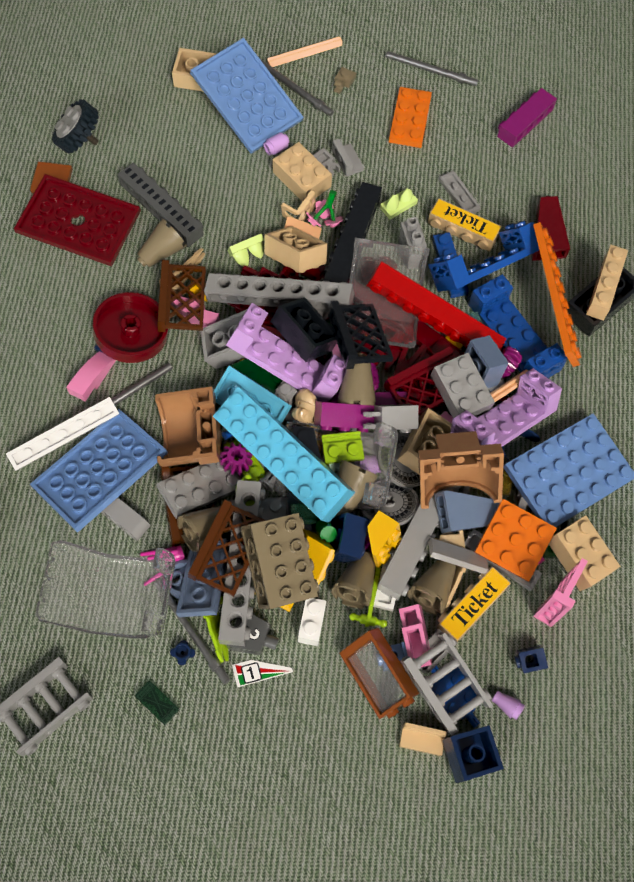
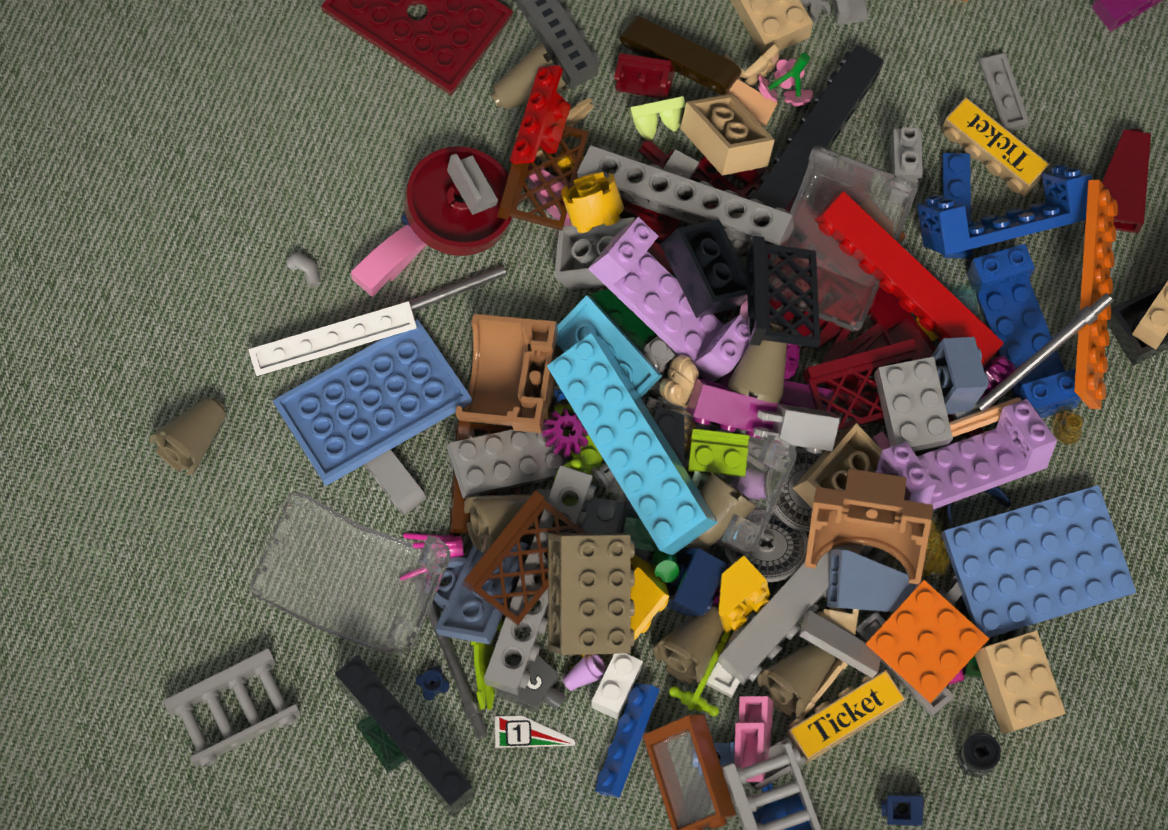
camera: 15 degrees right, 5 degrees up
(30, 389) = (307, 265): none -> light grey arm
(135, 313) = (471, 184): none -> light grey panel
(171, 694) = (383, 708): none -> black arch
(174, 261) = (543, 117): none -> red bracket
(219, 305) = (593, 201): none -> yellow brick
(233, 227) = (644, 76): none -> dark red hinge
(253, 210) = (686, 56): none -> dark brown beam
(269, 271) = (681, 164): none -> light grey tile
(288, 618) = (586, 671): none -> lavender cone
(328, 659) = (627, 740): none -> blue plate
(398, 203) = (905, 88): yellowish green tile -> none
(559, 304) = (1087, 316): none -> flat silver bar
(559, 602) = (954, 743): bright pink fence -> none
(564, 381) = (1069, 429): none -> clear yellow cone
(577, 612) = (979, 755): none -> black wheel

